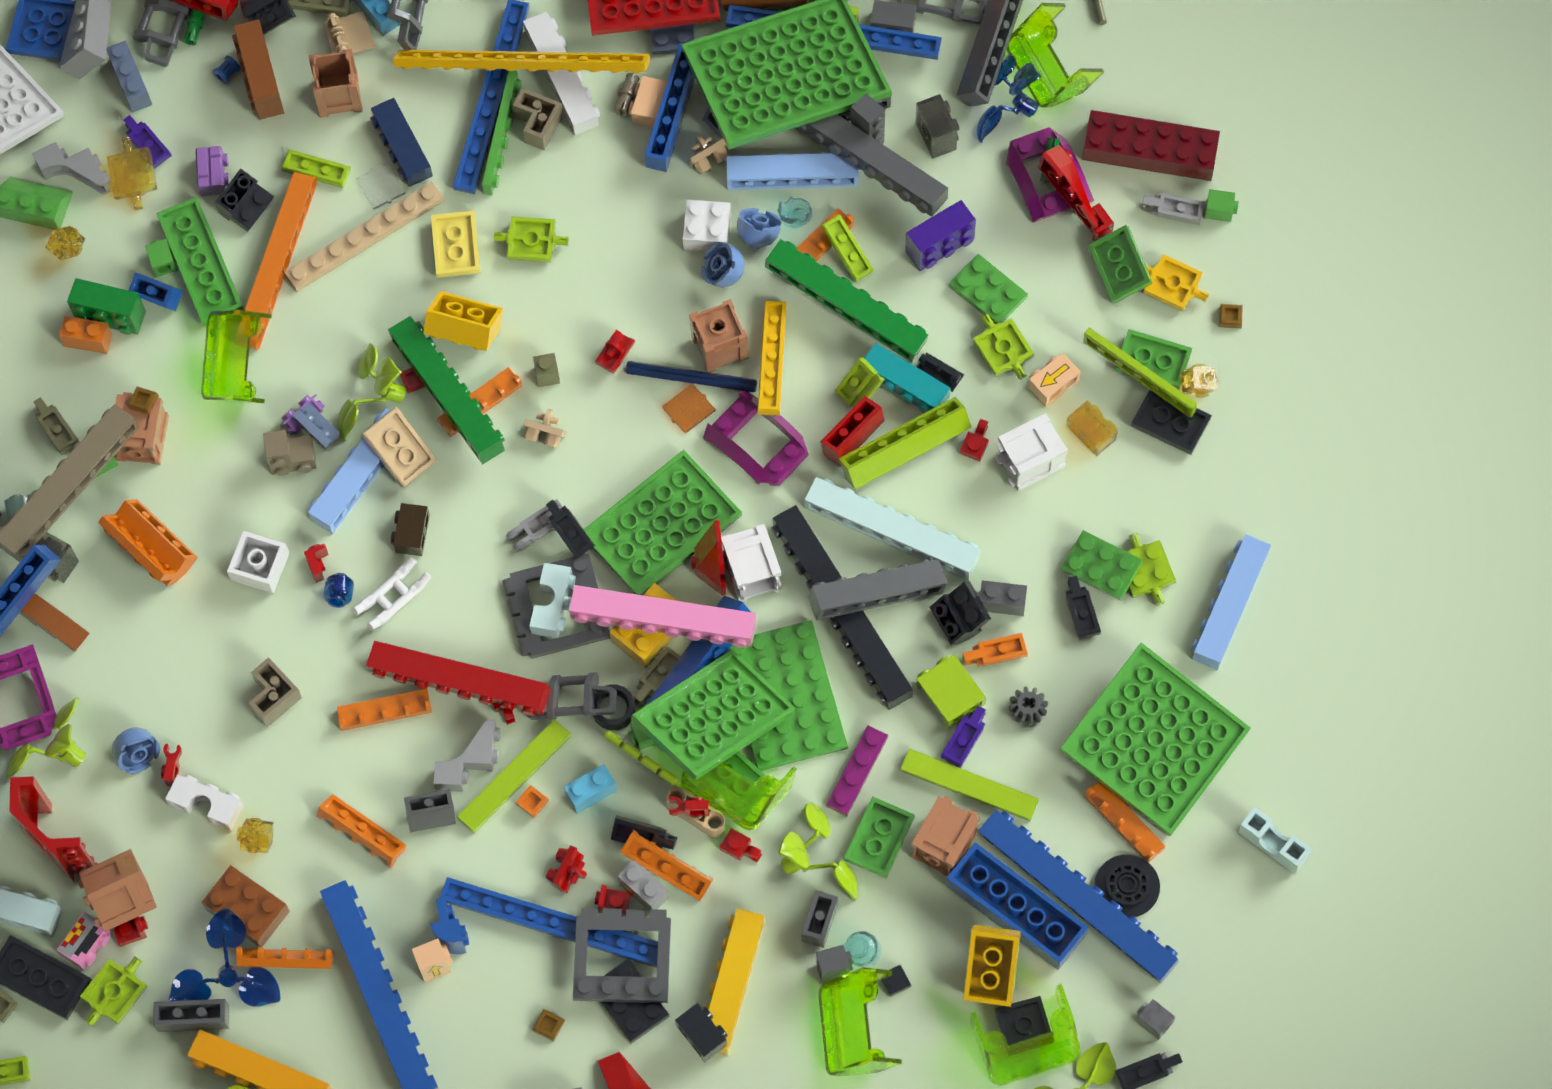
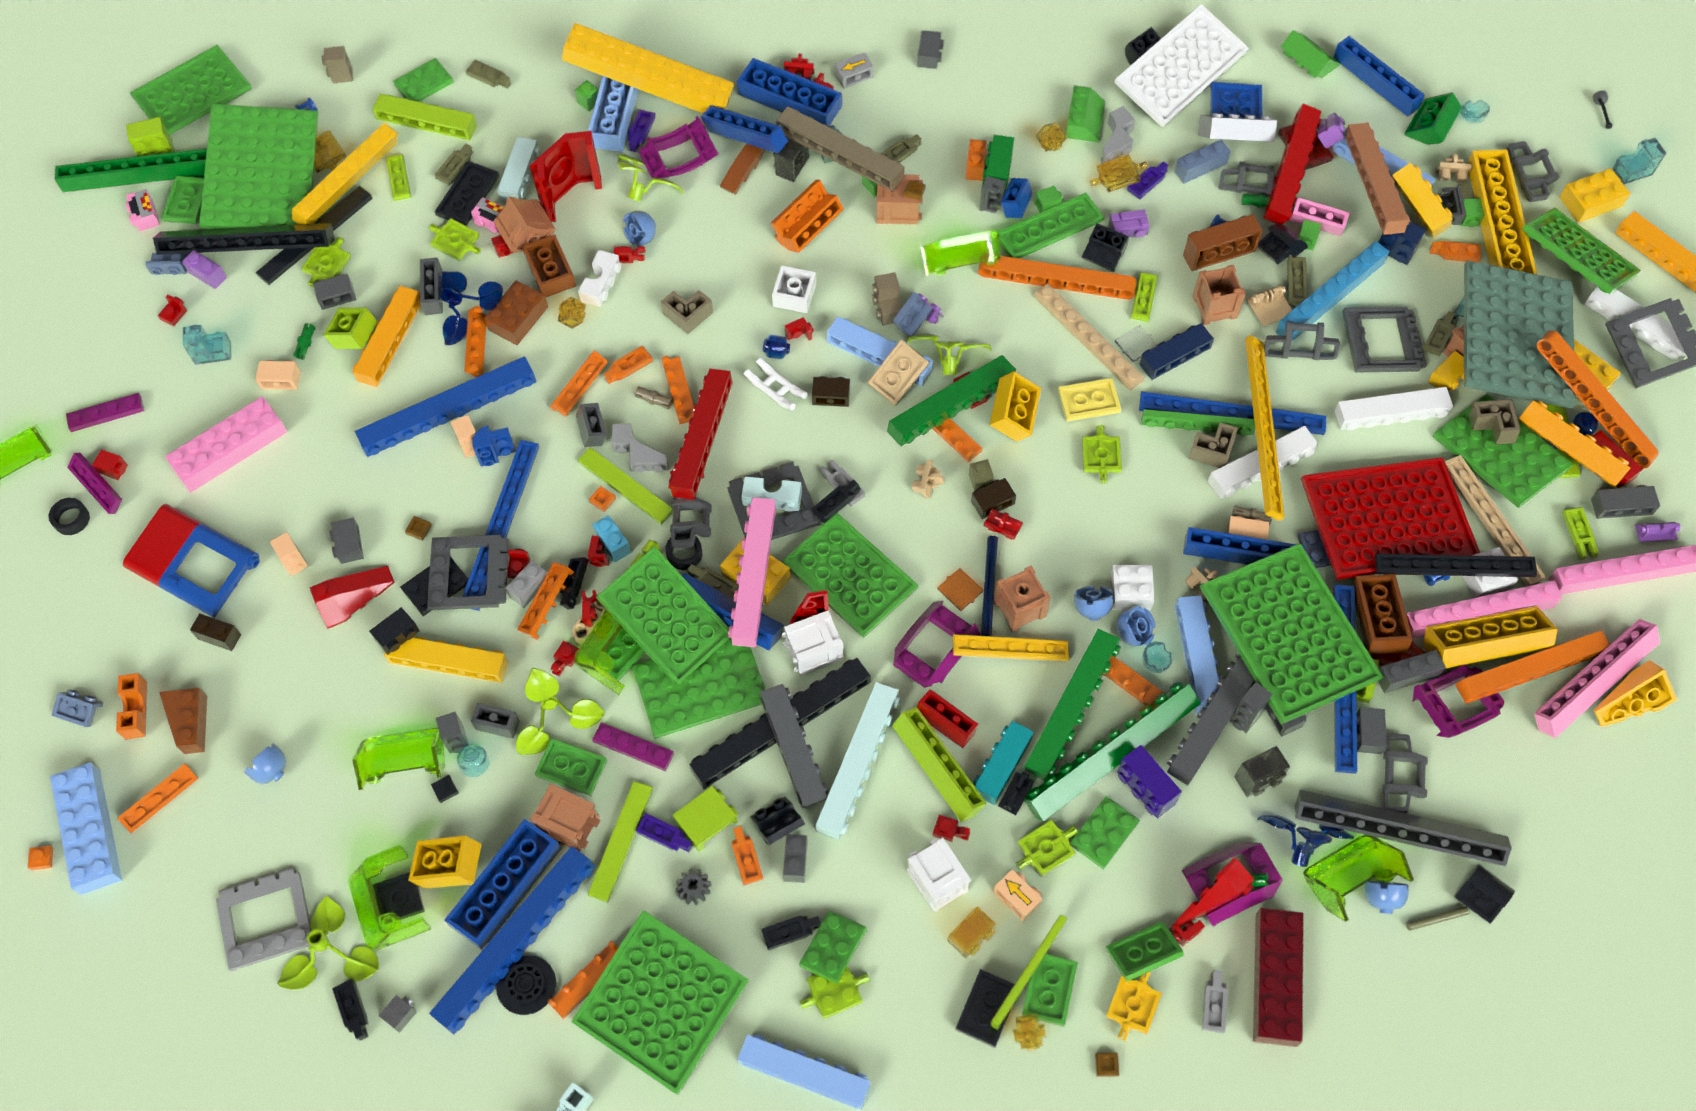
camera: 85 degrees right, 5 degrees down
(145, 319) = (991, 194): none -> dark grey hinge
(180, 864) = (549, 266): none -> dark orange brick
(341, 768) = (628, 365): none -> orange hinge
(393, 739) = (653, 397): none -> dark tan pin
(569, 870) = (544, 529): red hips -> none
(578, 360) = (994, 496): none -> dark brown brick
(604, 809) = (596, 554): none -> red bracket
(847, 248) = (1127, 703): lime tile -> none
(859, 382) = (993, 720): lime plate -> none
(902, 267) = (1108, 752): none -> brick
(1073, 33) = (1386, 895): none -> medium blue cylinder
(1221, 205) = (1224, 1049): bright green brick -> none

